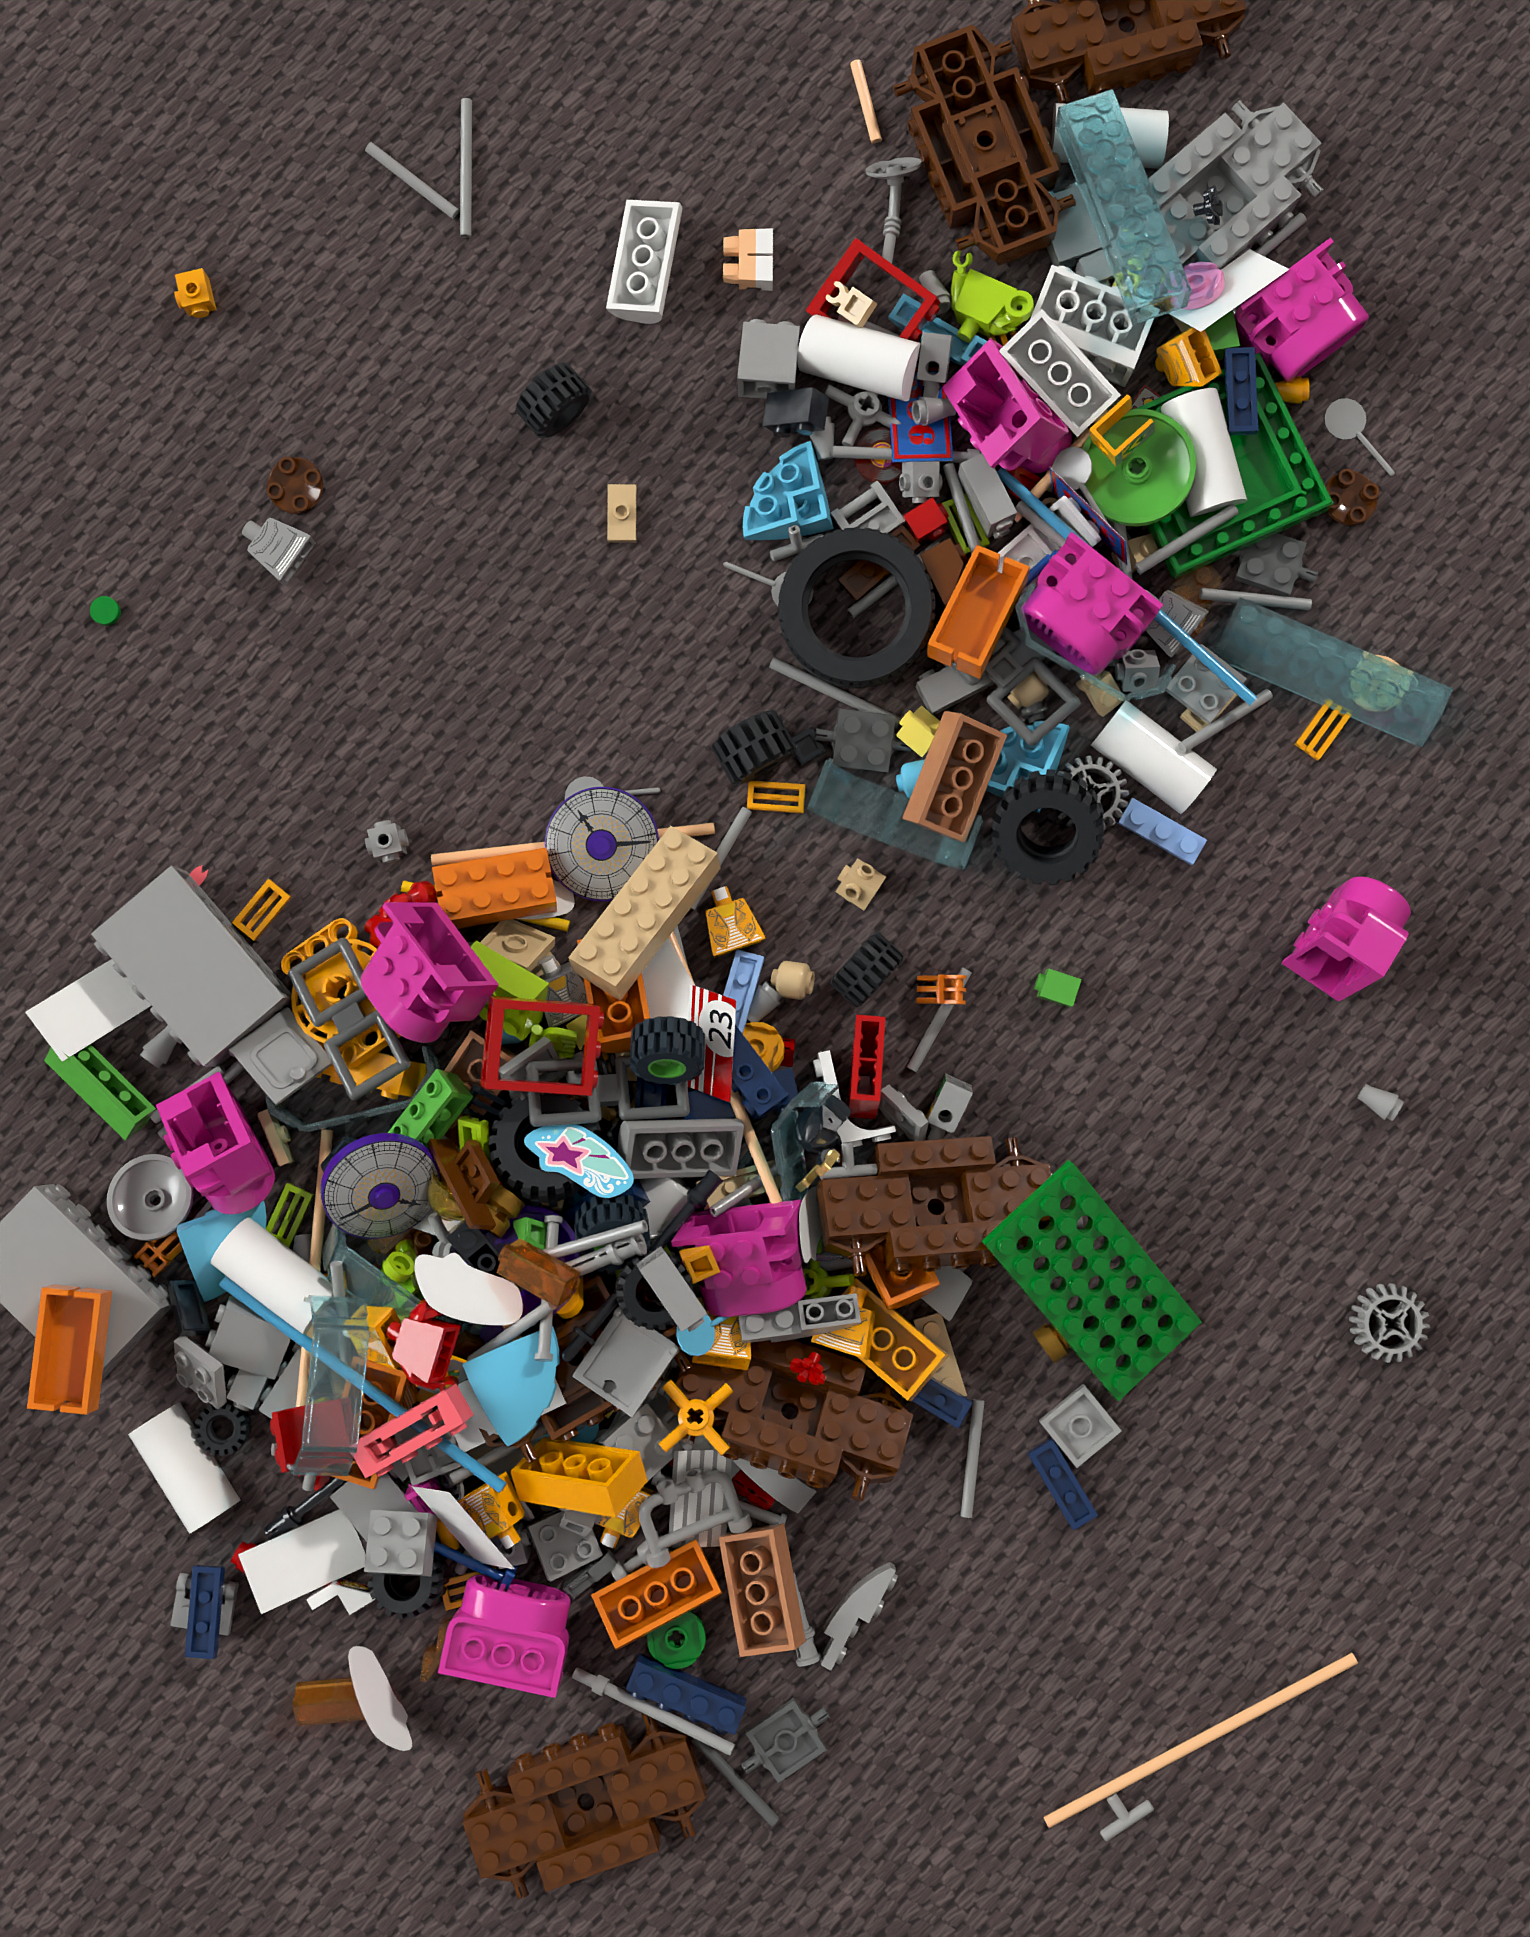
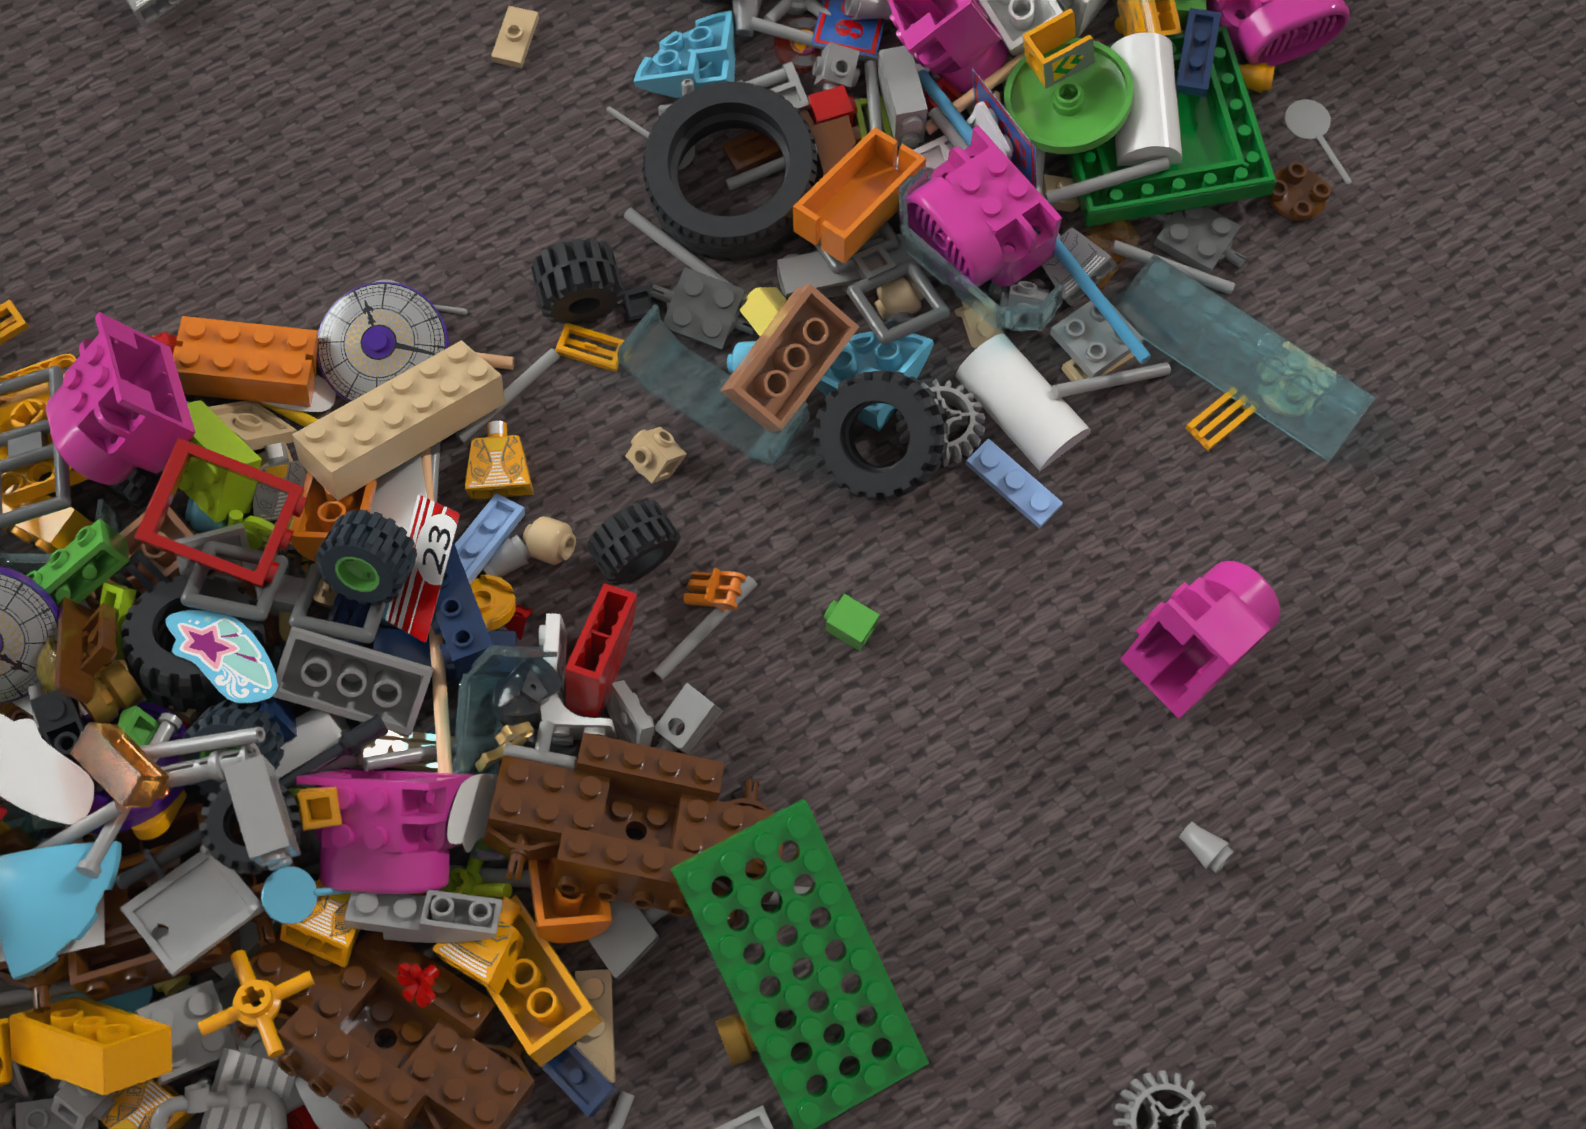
camera: 10 degrees right, 15 degrees down
(394, 848) = (149, 289): light grey brick -> none
(1075, 469) = (1003, 81): light grey piece -> none

